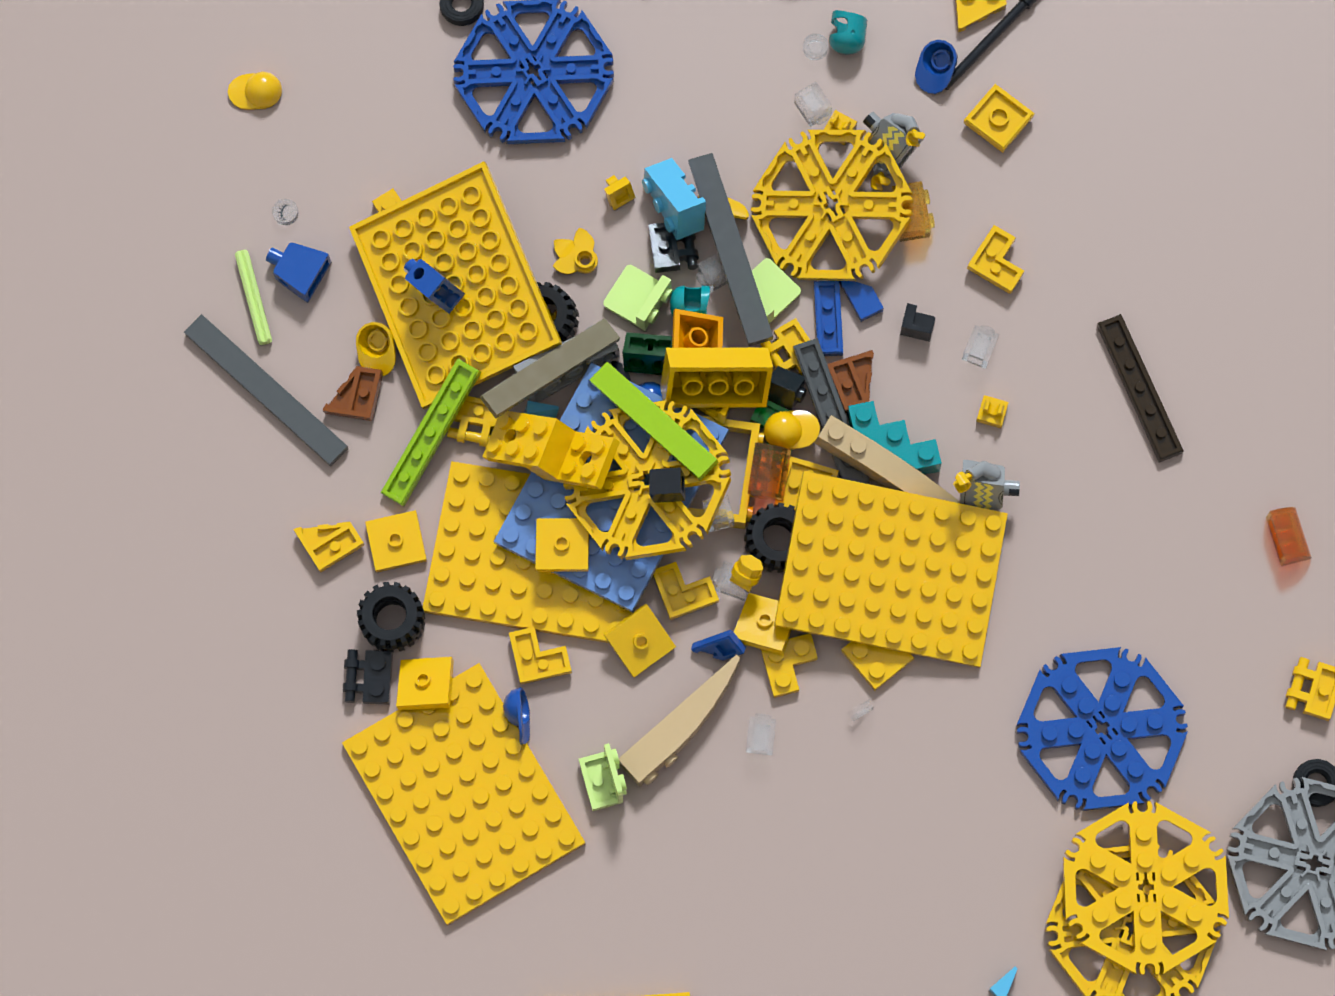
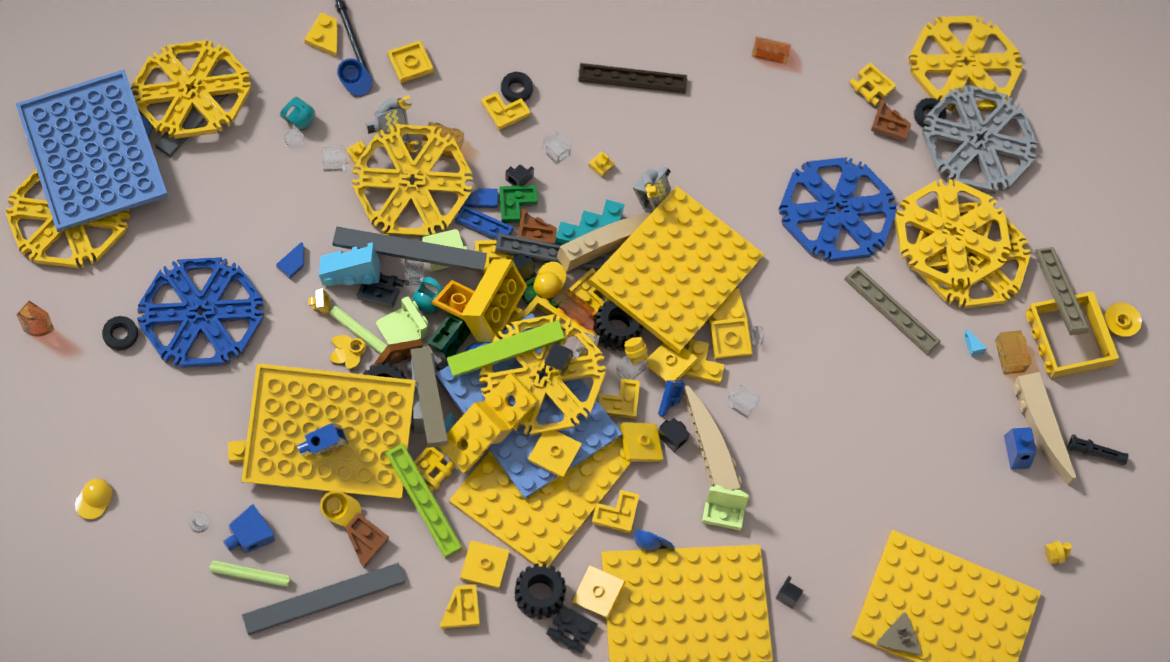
camera: 75 degrees left, 10 degrees down
(541, 905) = (789, 593): none -> black panel
(599, 308) = (398, 352): none -> dark orange wing
(607, 255) = (358, 329): none -> yellowish green axle
(655, 133) = (292, 261): none -> blue tile
(672, 673) = (673, 434): none -> black brick
(838, 680) = (730, 338): none -> yellow plate
(879, 330) = (514, 196): none -> green plate
(994, 862) = (892, 310): none -> dark tan tile
(1036, 243) = (519, 77): none -> black tyre
(1268, 737) = (890, 123): none -> dark orange wing

